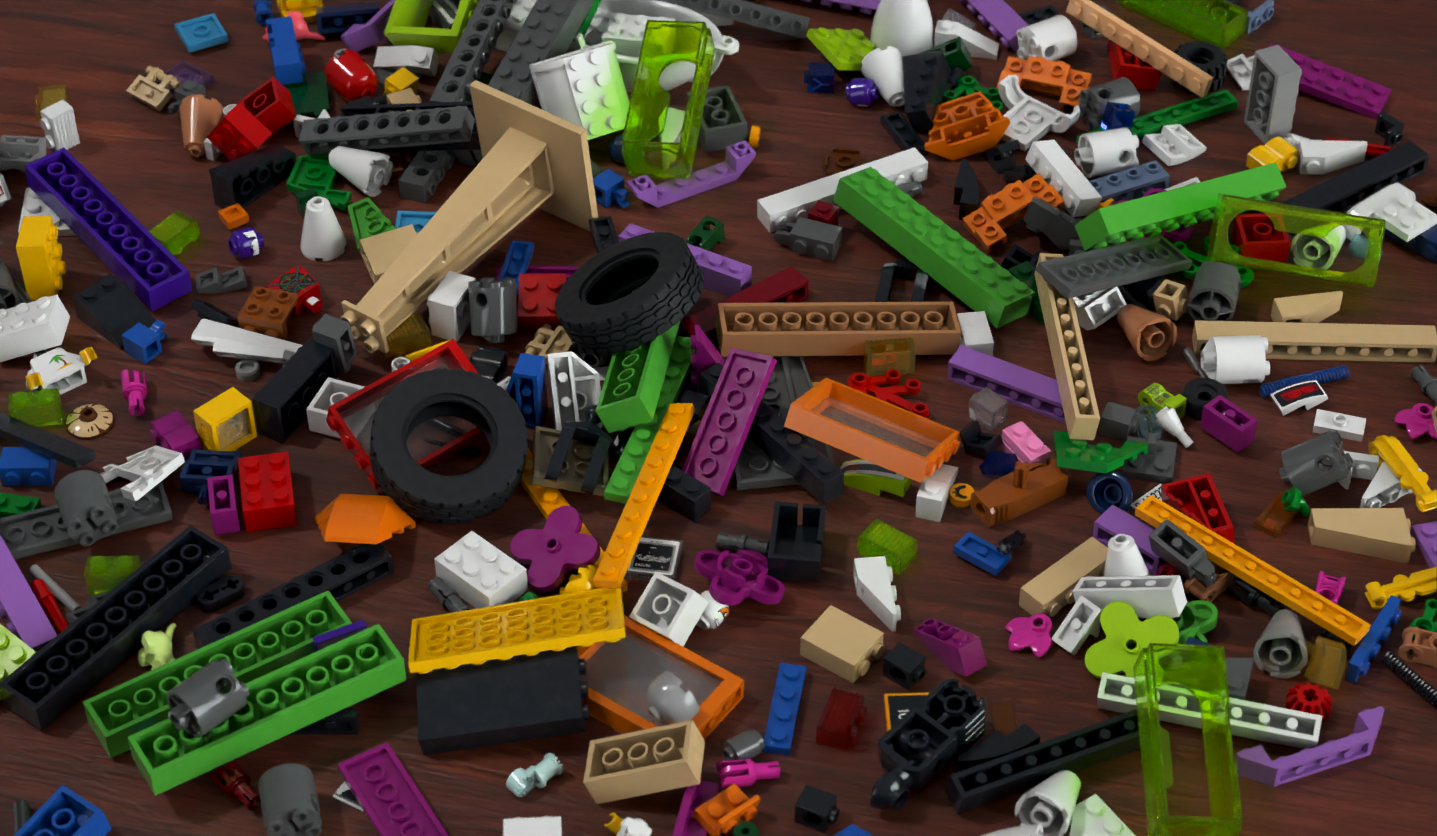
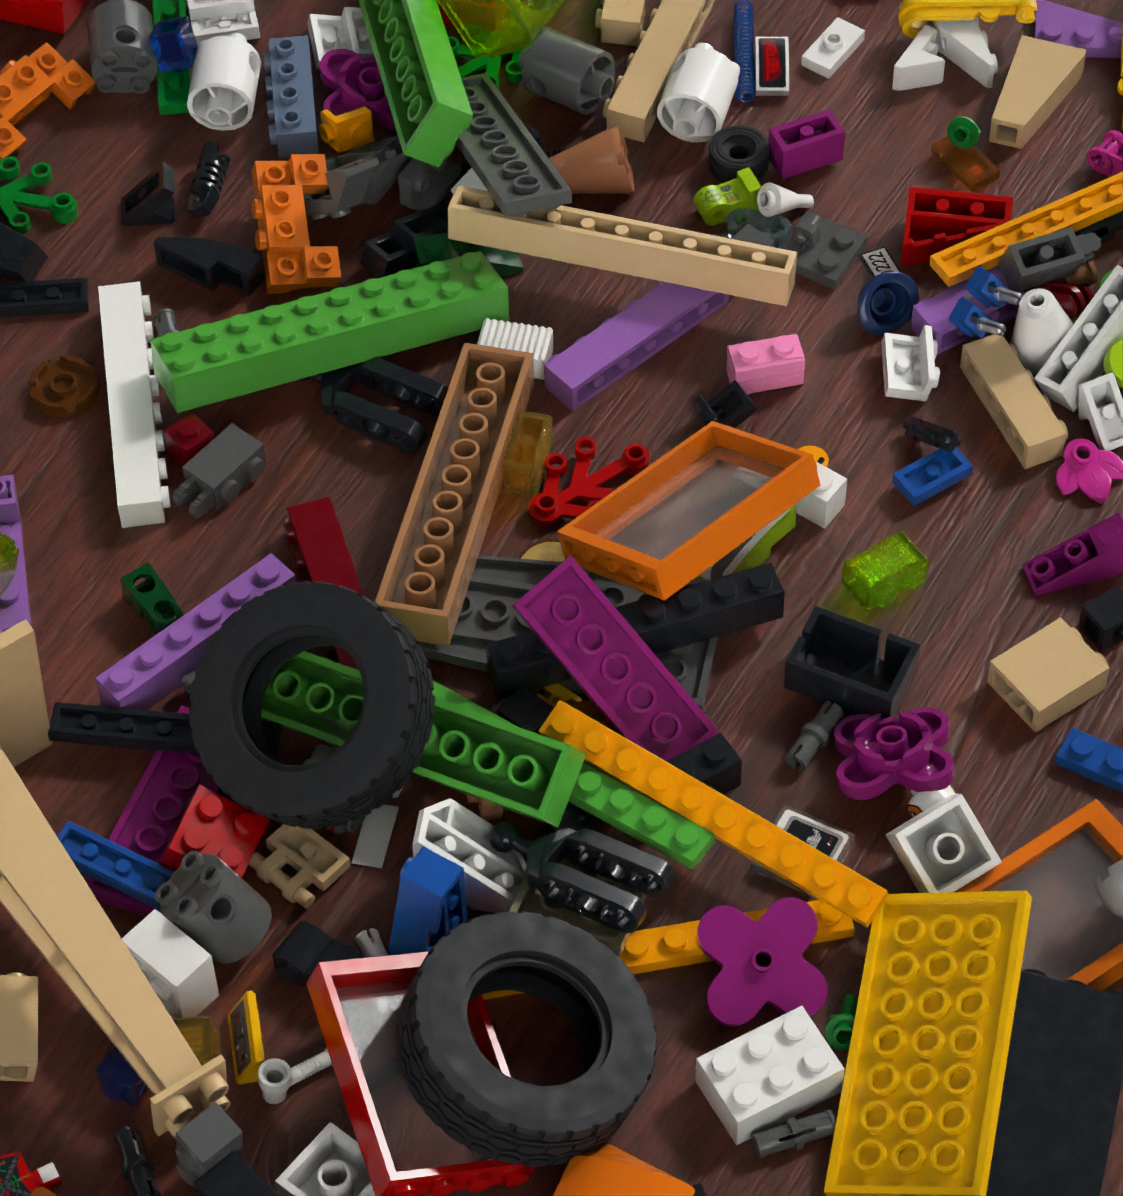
camera: 70 degrees left, 10 degrees up
(580, 582) = (839, 950): yellow hair -> none
(704, 356) = (462, 666): magenta slope -> none
(874, 588) = (959, 606): white slope -> none
(965, 127) = (80, 212): orange wedge -> none
(988, 408) = (665, 380): clear brick -> none
(999, 464) = (780, 401): clear blue bracket -> none
(1019, 491) = (838, 399): dark orange piece -> none
(1030, 117) = (92, 143): white piece -> none
(1059, 170) = (241, 142): white brick -> none
(1067, 520) = (910, 365): none -> white bracket
(1094, 458) = (820, 303): green wing -> none
(1138, 531) = (988, 291): none -> blue piece
(1171, 299) = (552, 119): tan brick -> none
(1193, 361) = (666, 144): flat silver piece -> none
(1309, 469) = (927, 82): dark grey cylinder -> none

